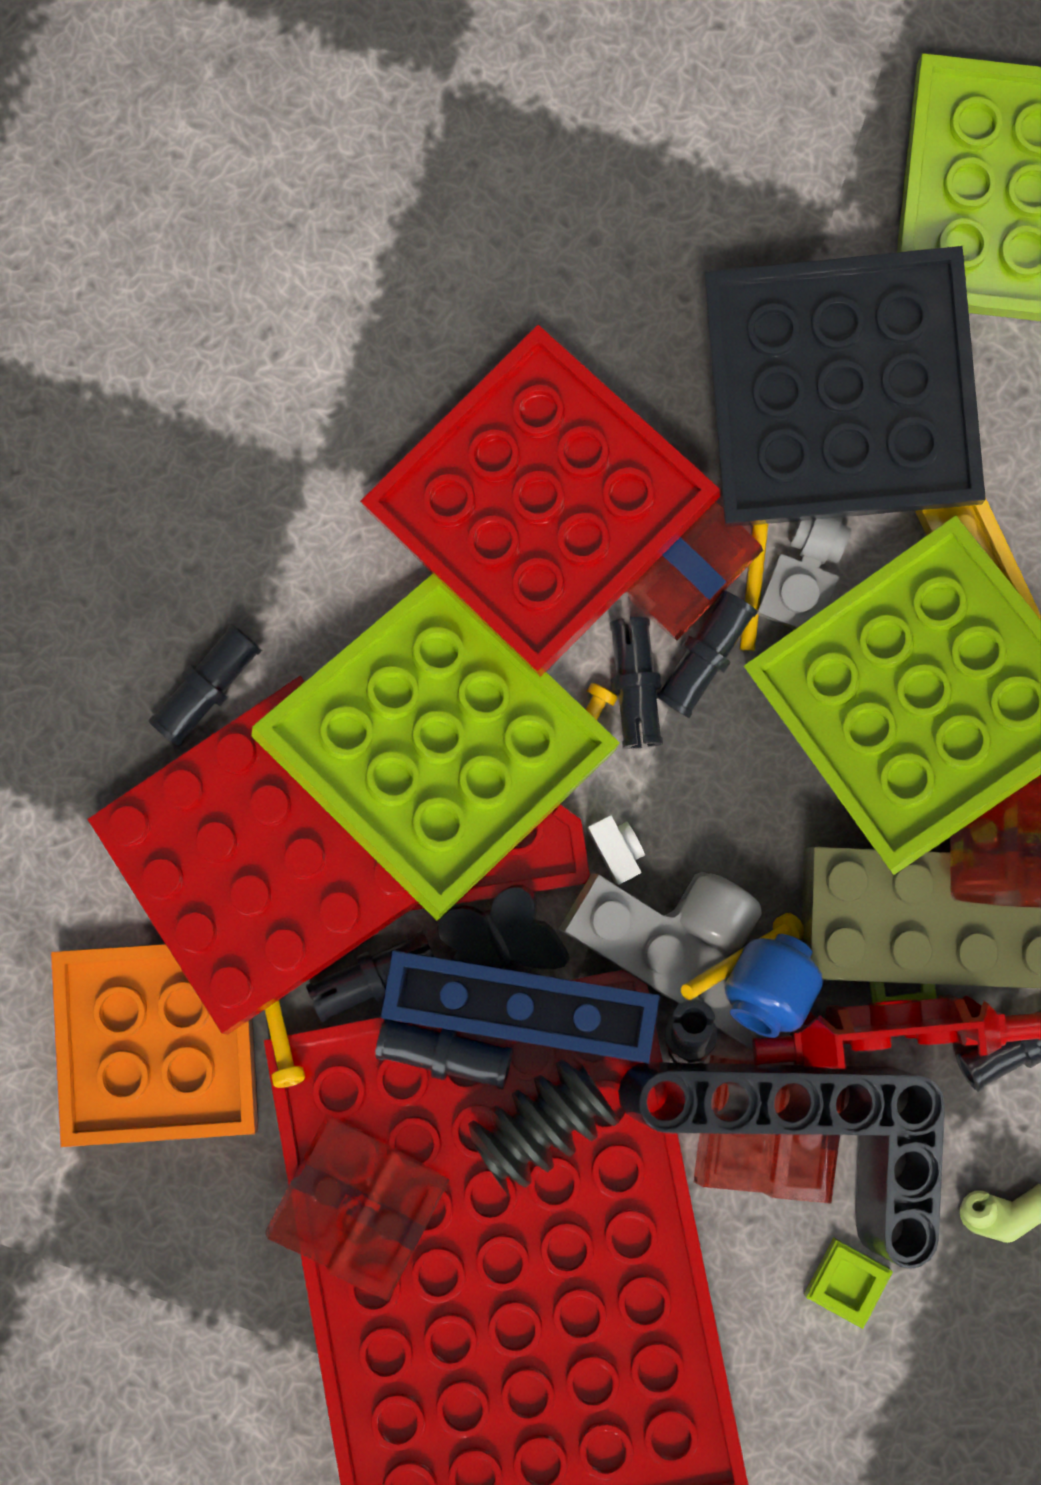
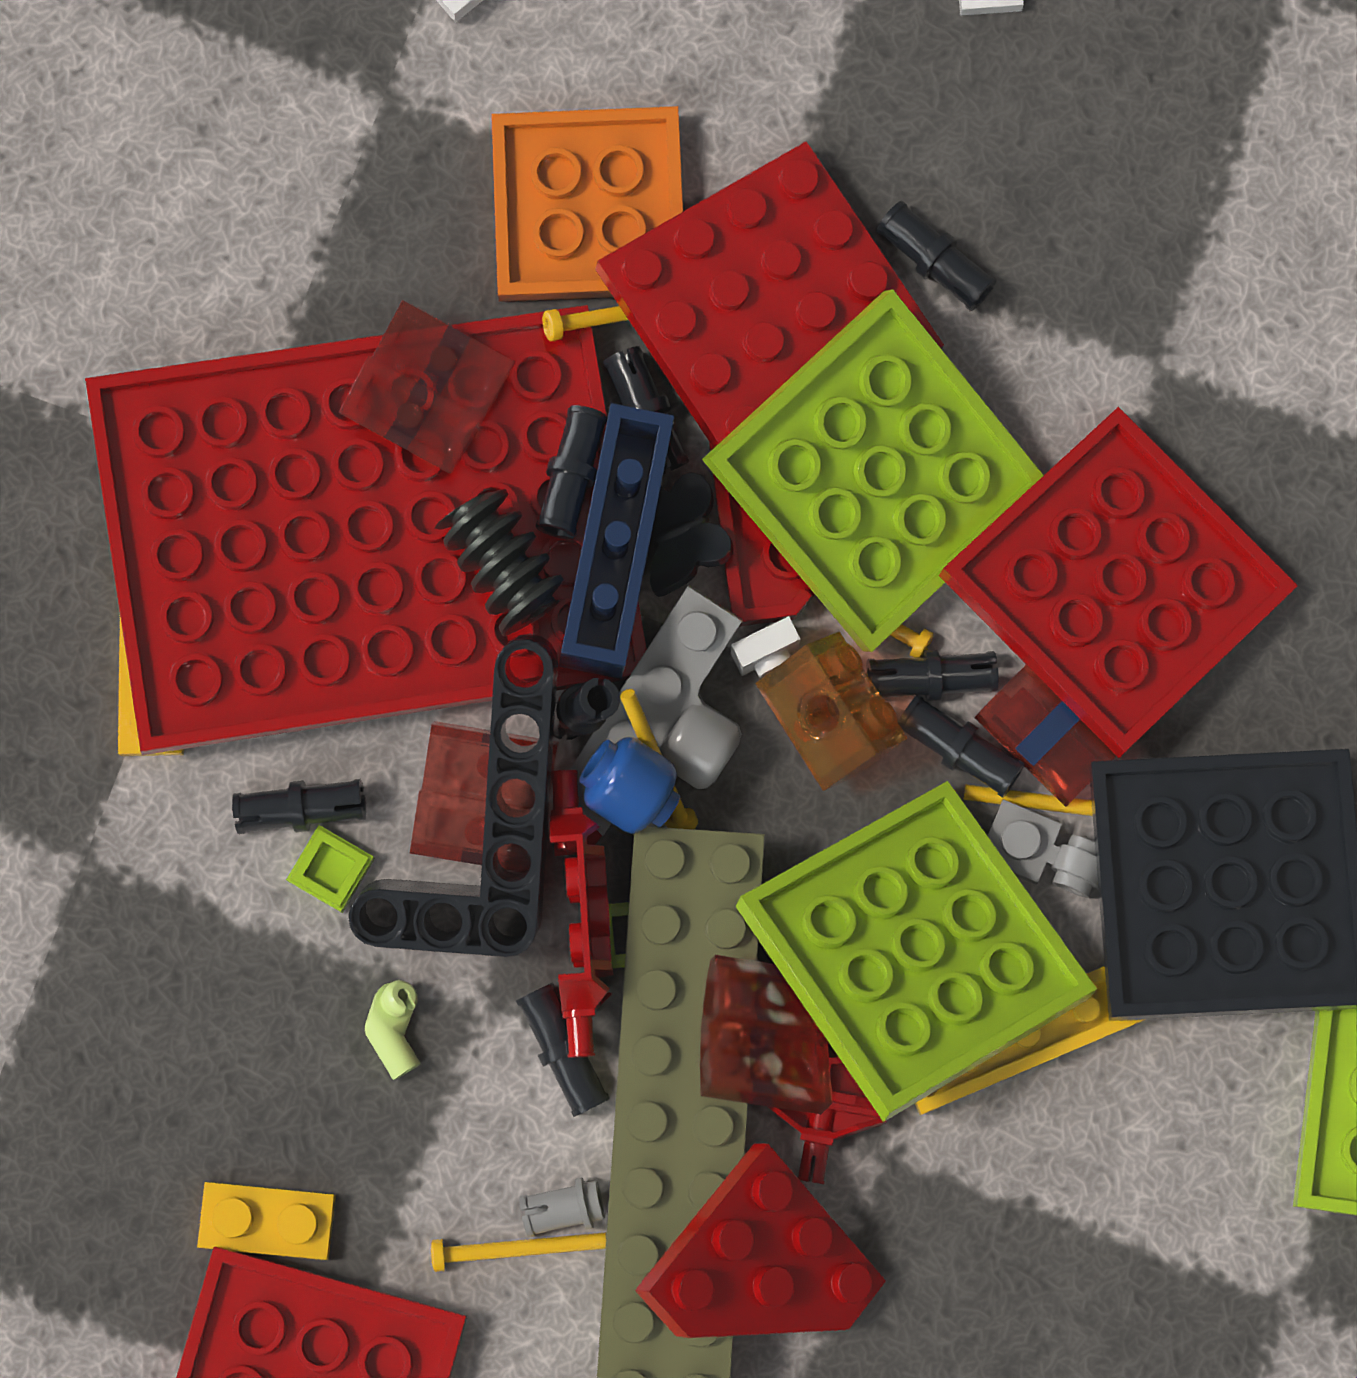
camera: 90 degrees right, 5 degrees down
(681, 781) = (802, 697): none -> clear orange brick
(788, 1319) = (299, 806): none -> black pin

